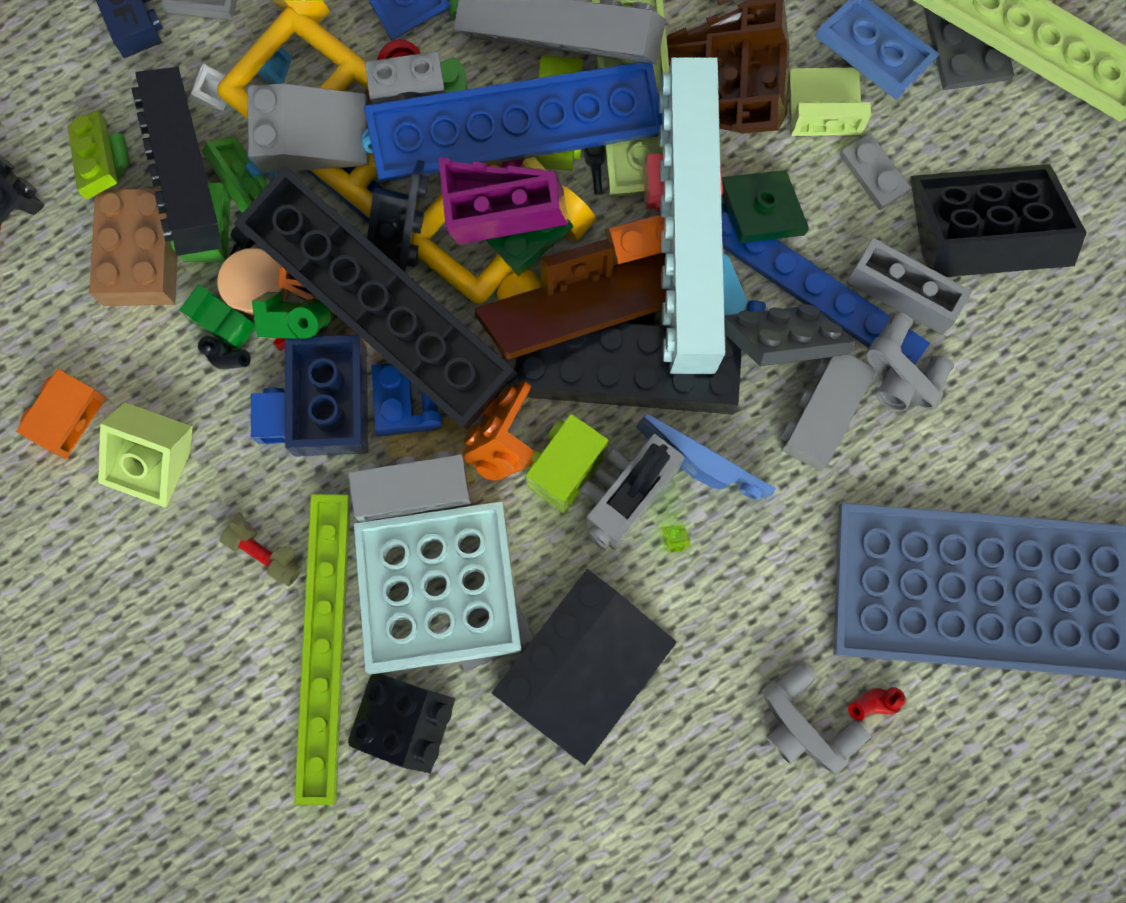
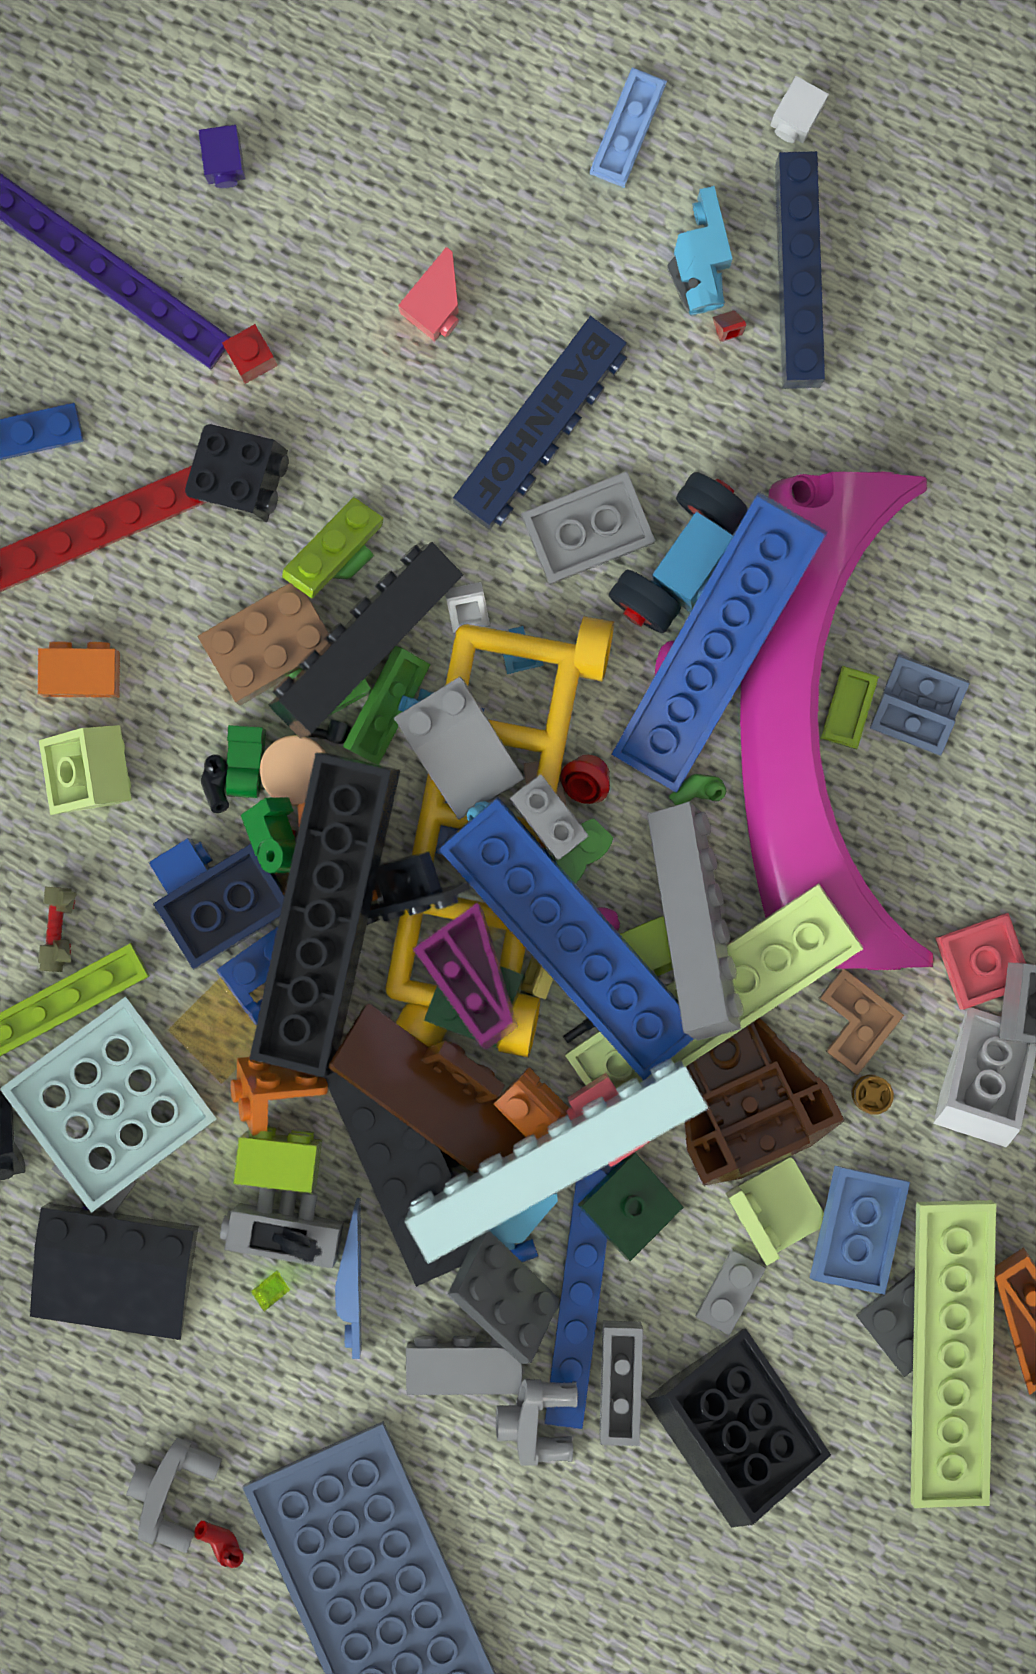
camera: 60 degrees right, 10 degrees up
(409, 487) = (182, 1031): light grey brick -> none

